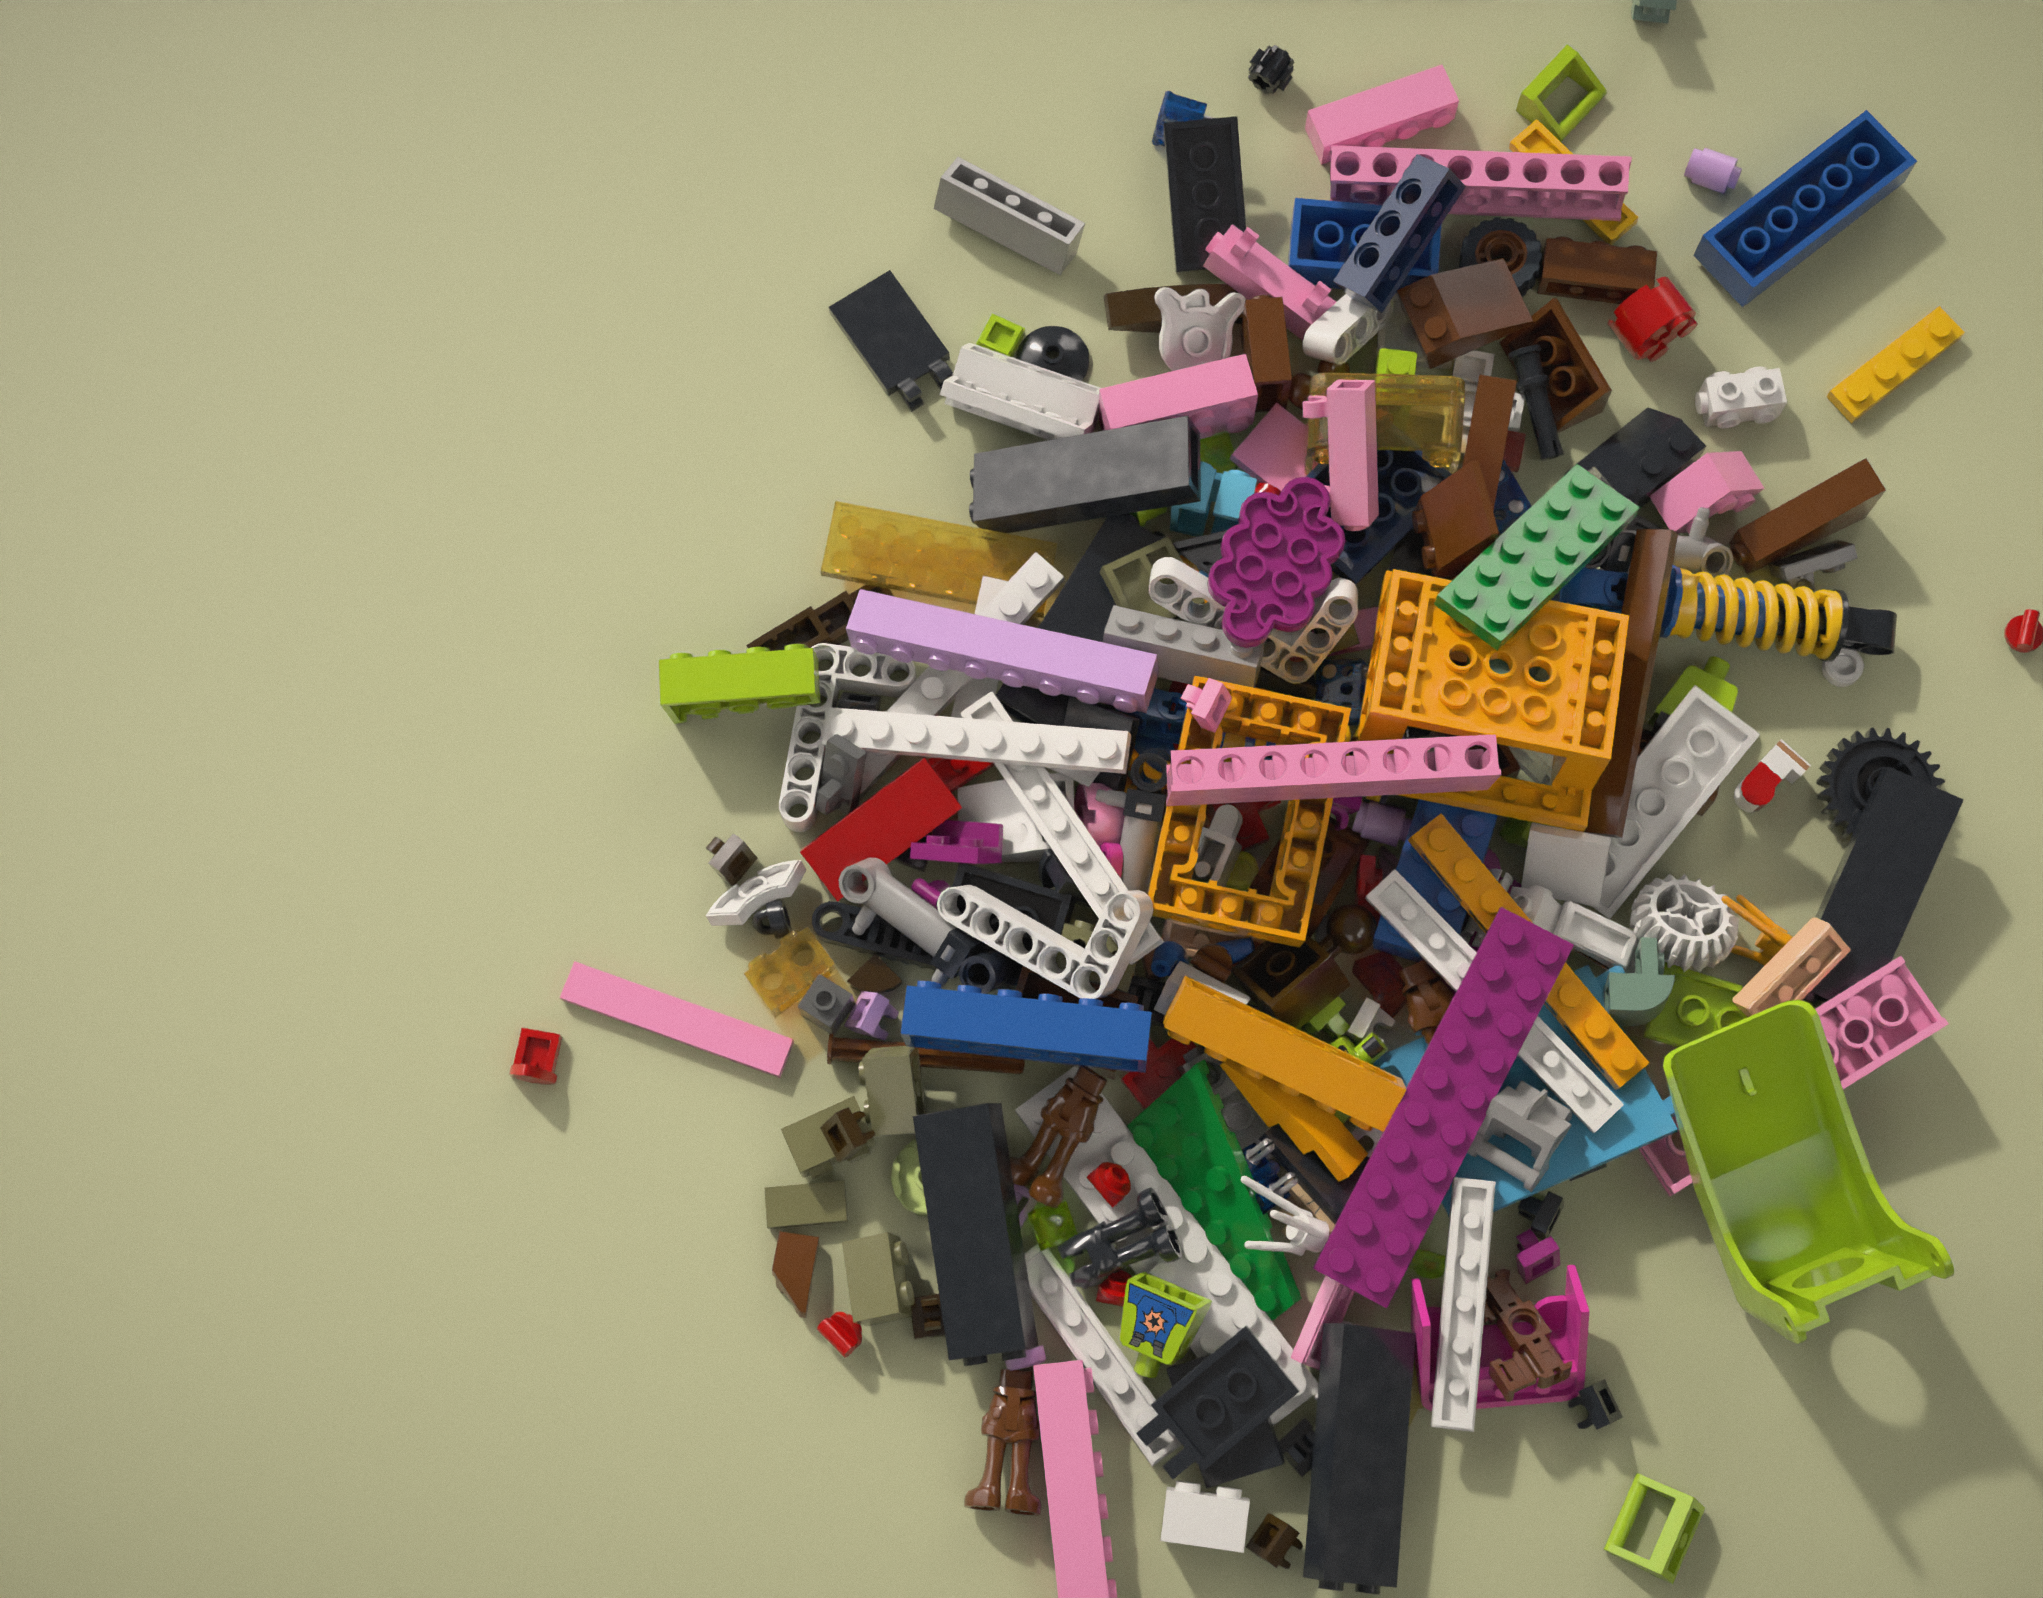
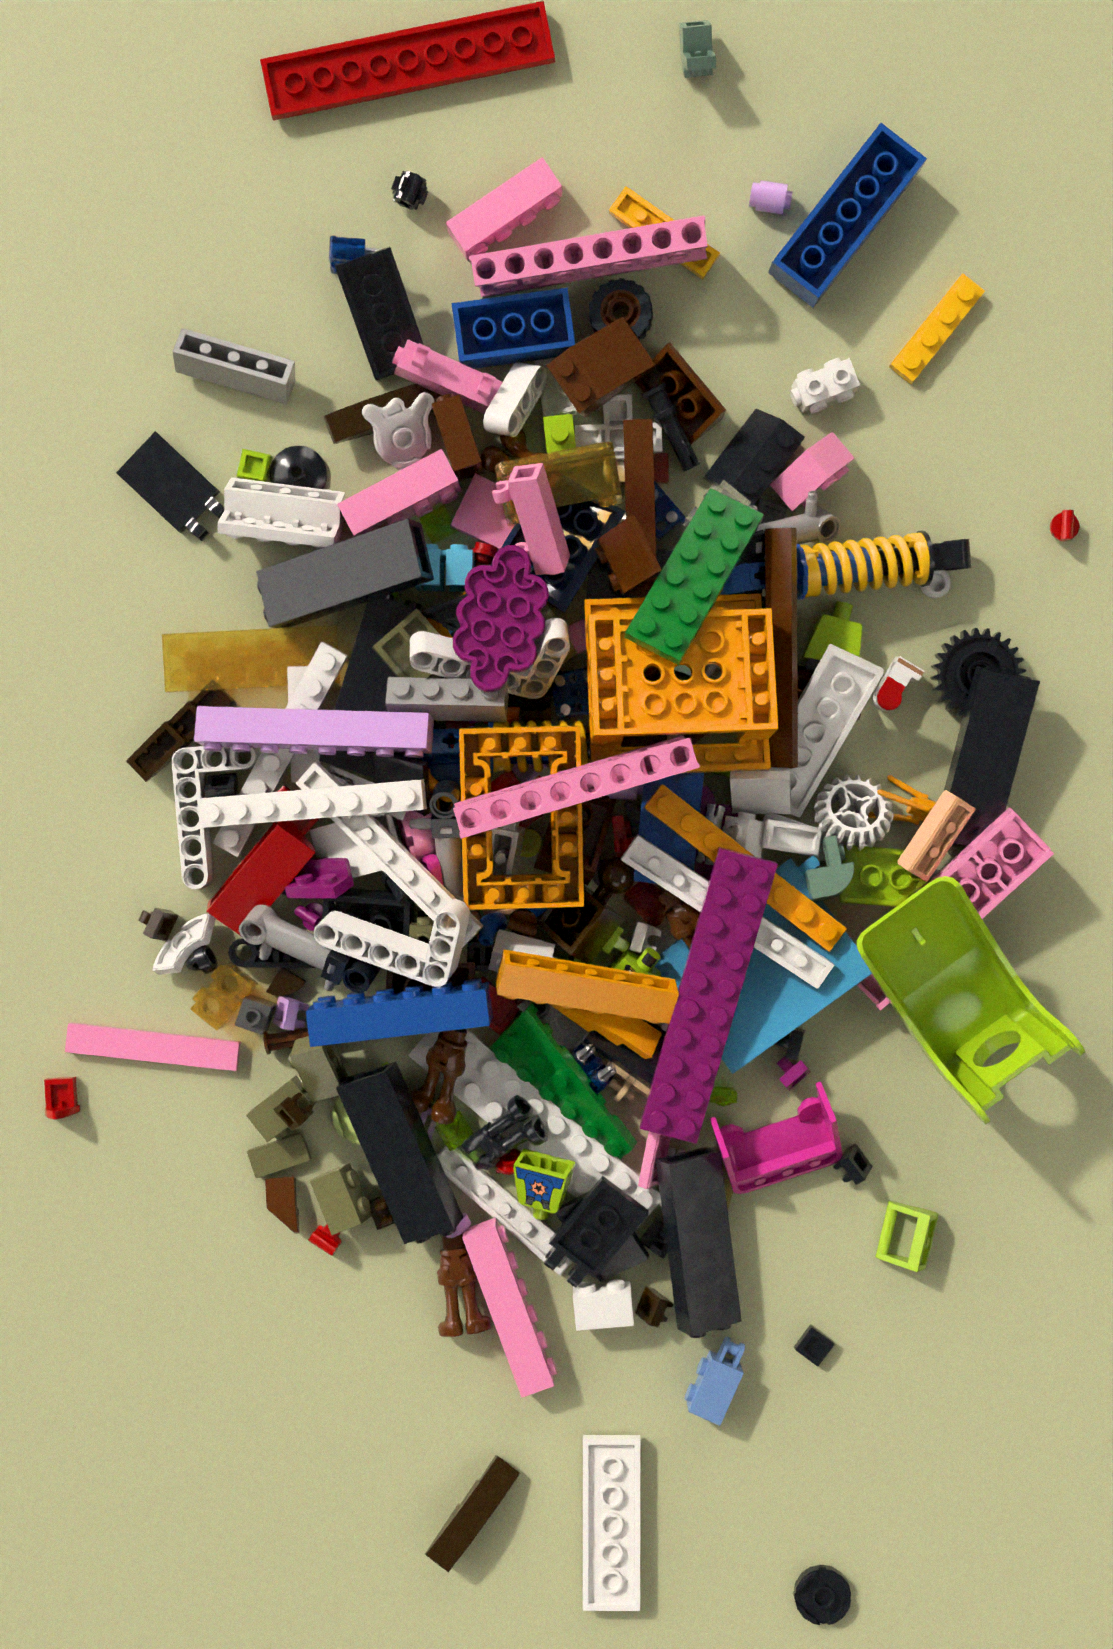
camera: 15 degrees left, 15 degrees up
(738, 681) = (127, 796): lime wedge -> none
(841, 776) = (222, 848): dark grey hinge -> none
(1111, 1182) = (487, 1094): red plate -> none
(1207, 704) = (474, 753): bright pink tile -> none
(1301, 1229) = (627, 1102): white plant -> none
(1399, 233) = (548, 313): dark blue brick -> none
(1463, 1304) = (748, 1125): white tile -> none
(1528, 1118) = (772, 991): light grey piece -> none
(1533, 1353) = (807, 1149): reddish brown piece -> none
(1565, 64) = (639, 130): lime tile -> none
(1594, 270) = (697, 305): reddish brown brick -> none
(1652, 320) = (746, 339): red brick -> none
(1799, 568) = (890, 514): dark grey hinge -> none
(1808, 517) = (889, 476): reddish brown slope -> none

